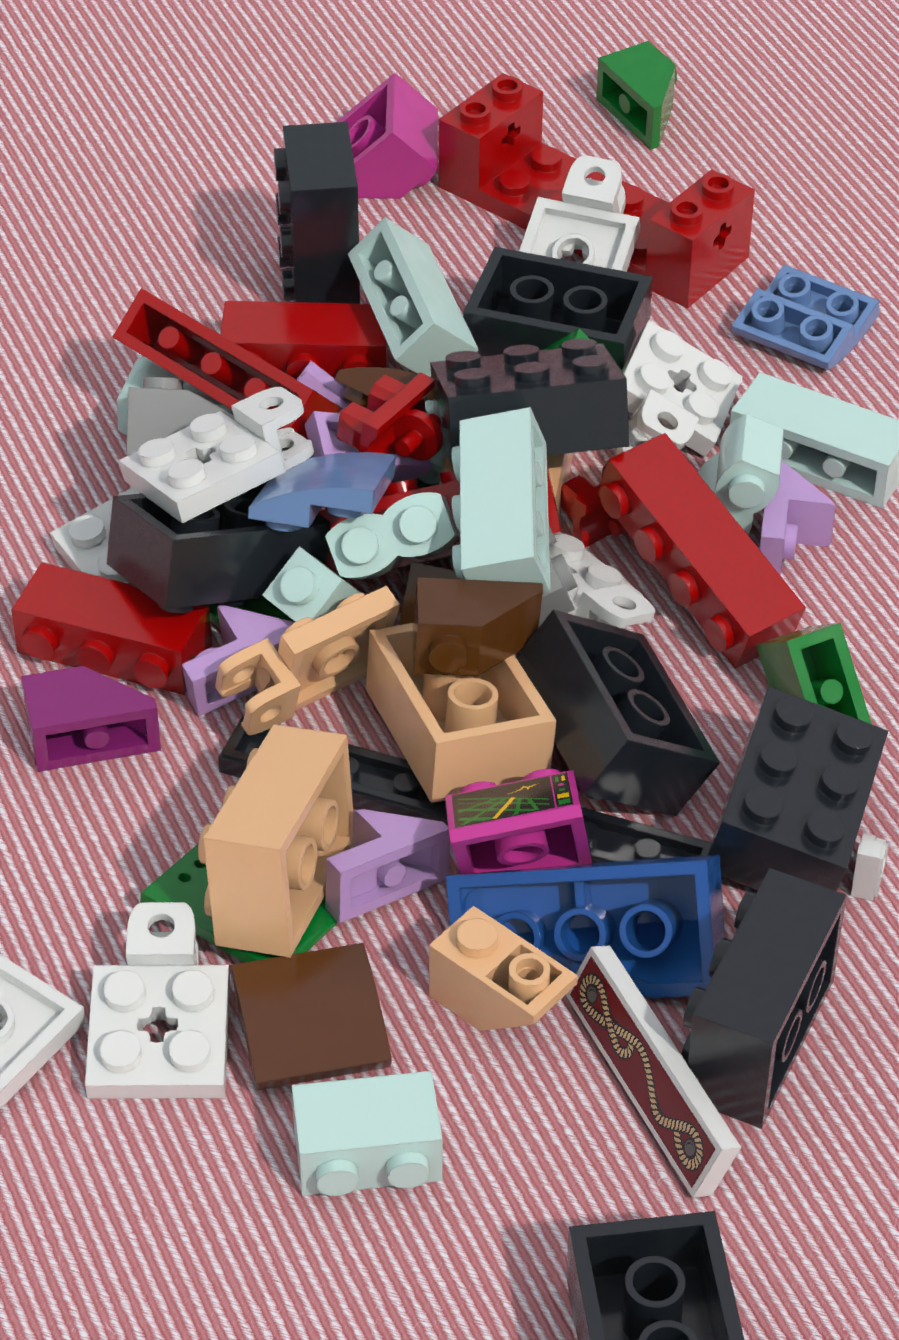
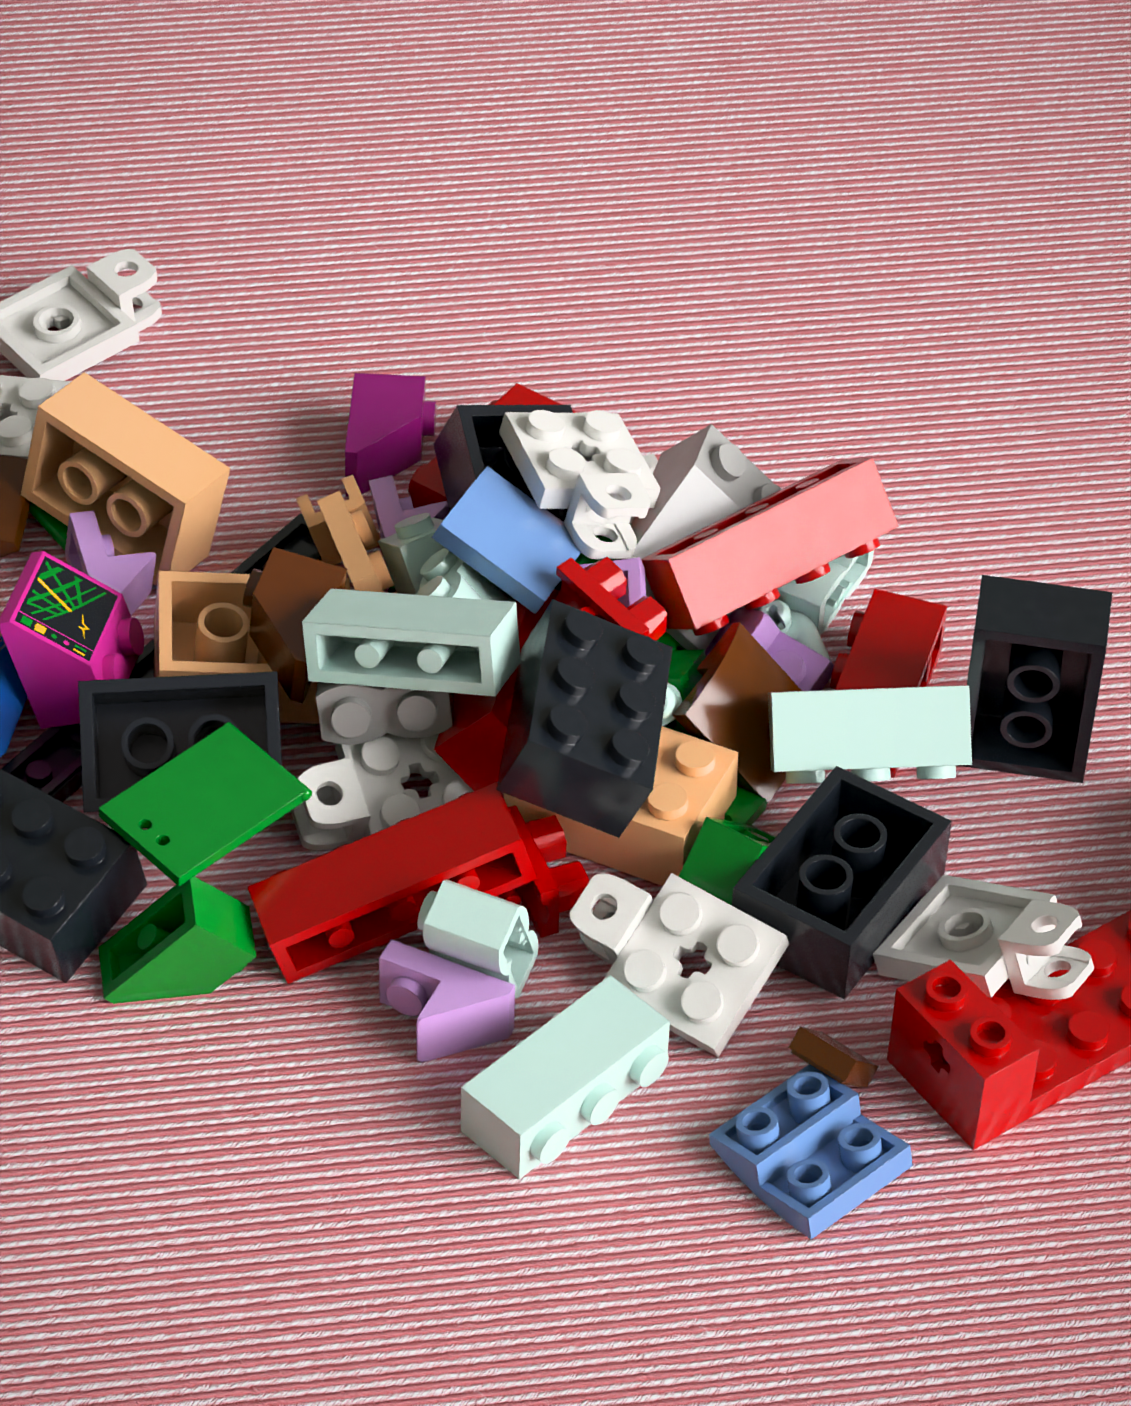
camera: 105 degrees right, 0 degrees up
(709, 643) = (204, 803): none -> green container
(723, 312) = (832, 1058): none -> reddish brown tile

